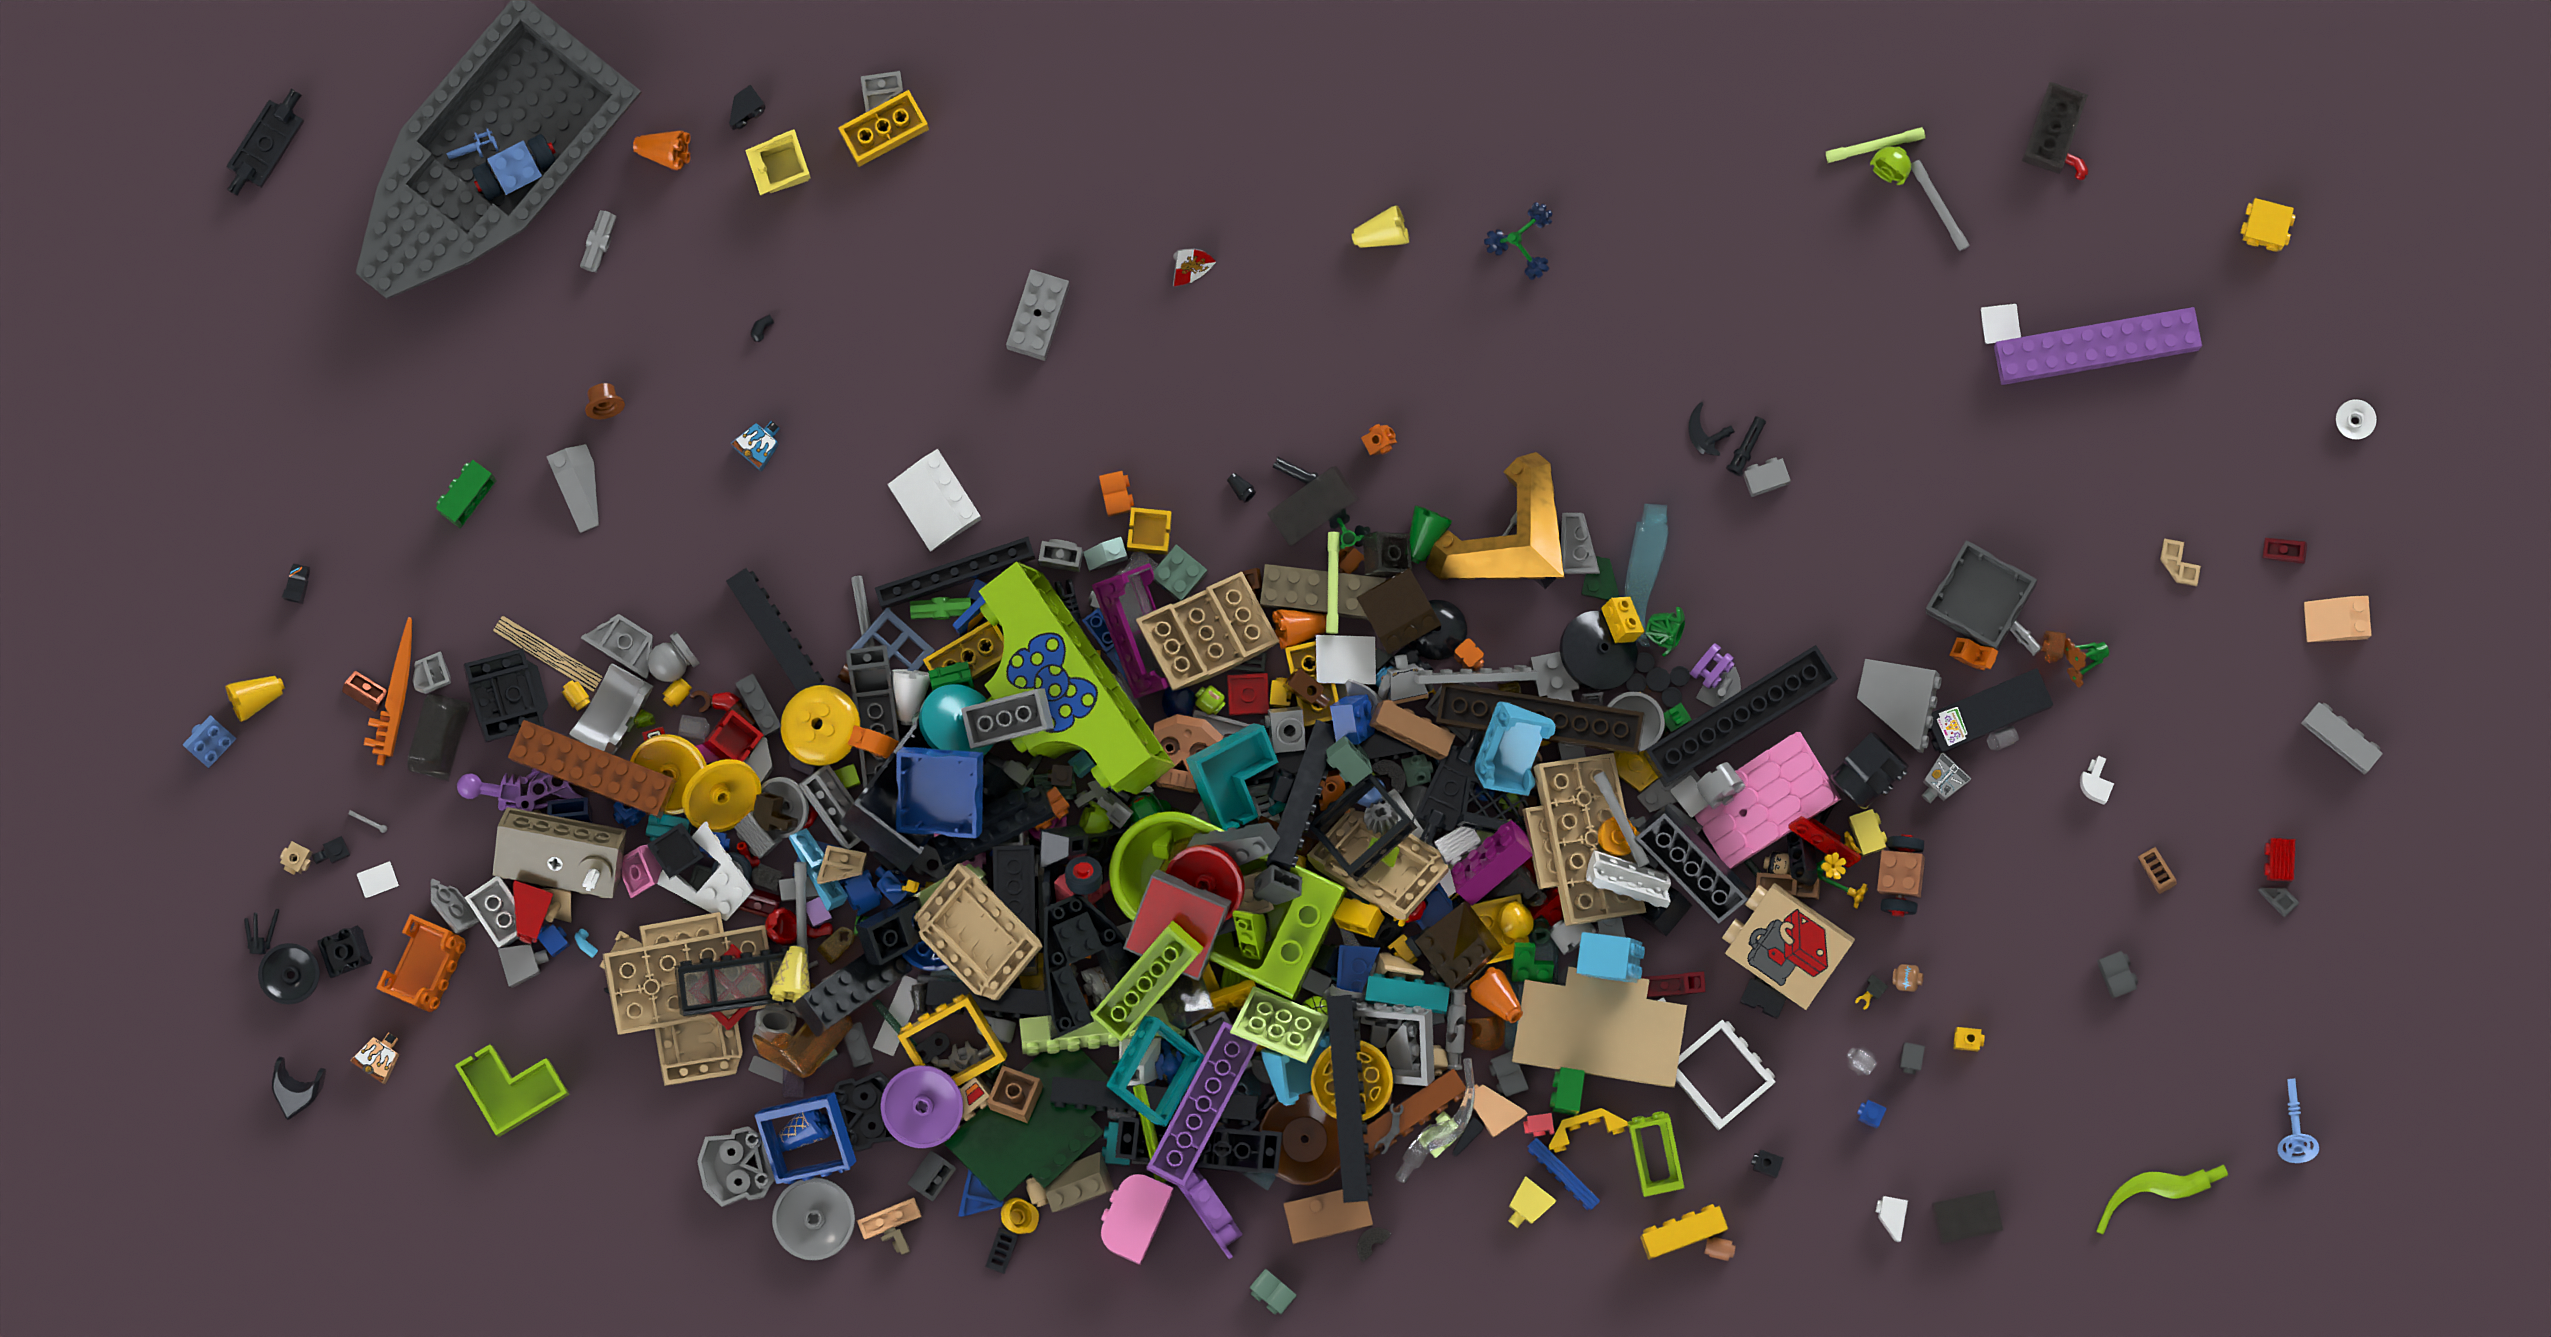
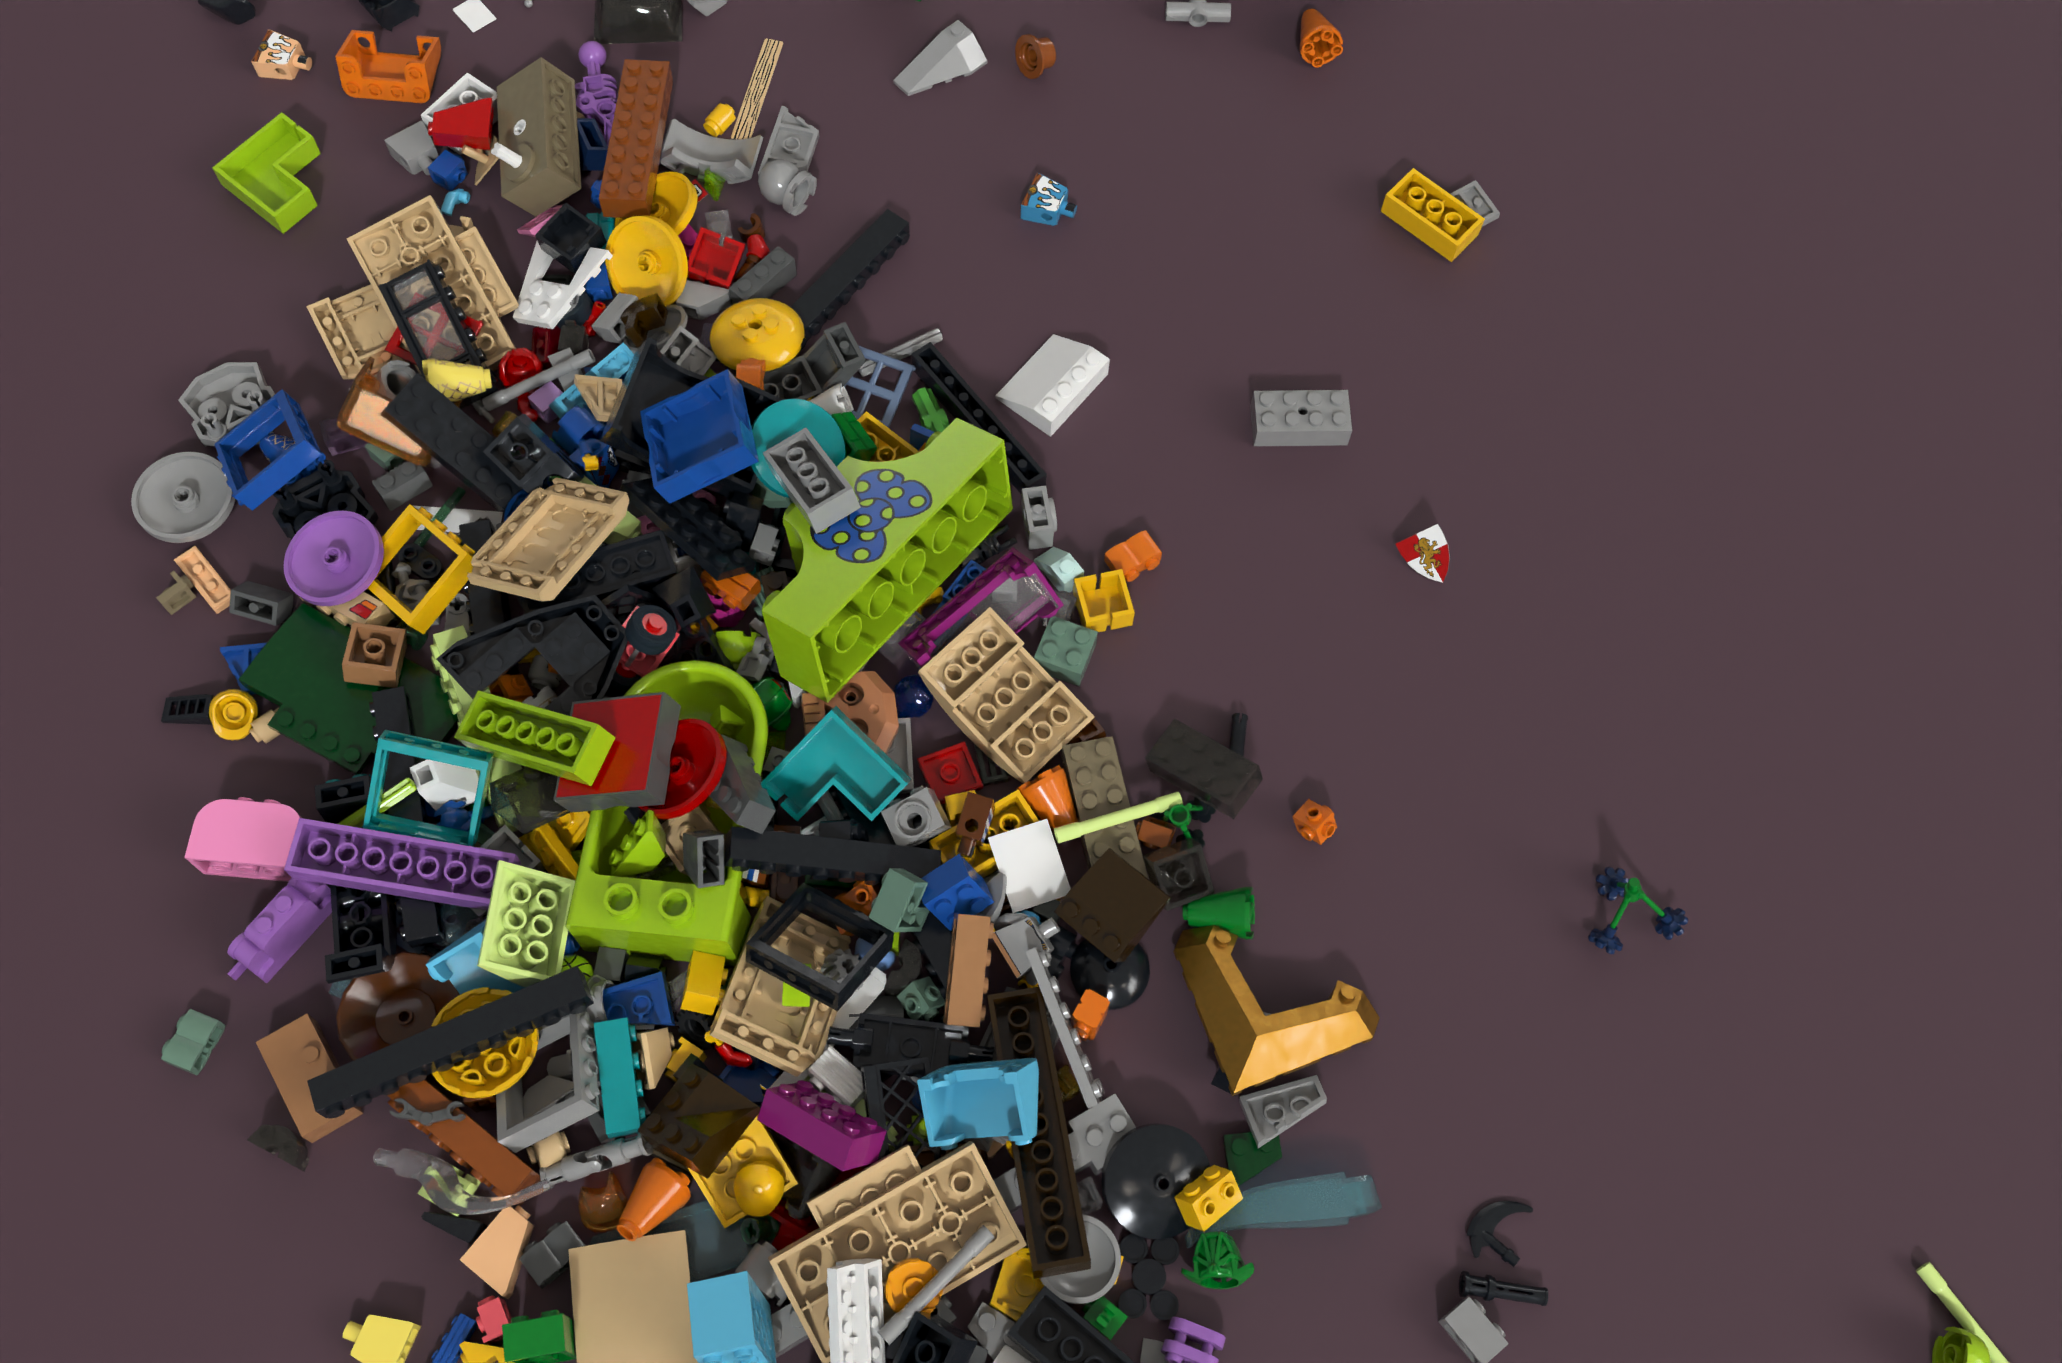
camera: 65 degrees right, 15 degrees down
(452, 907) = (454, 65): light grey tile -> none
(505, 693) = (703, 59): black slope -> none
(676, 692) = (752, 203): yellow brick -> none
(745, 106) = (1392, 93): black slope -> none
(758, 327) = (1173, 170): black arm -> none
(778, 163) = (1350, 131): light yellow piece -> none
(1079, 1183) = (284, 765): dark tan slope -> none
(1209, 700) = (927, 731): lime head -> none
(1242, 488) = (1193, 690): black cone -> none
(1382, 230) = (1566, 745): light yellow cone -> none
(1526, 968) = (700, 1230): green plate -> none

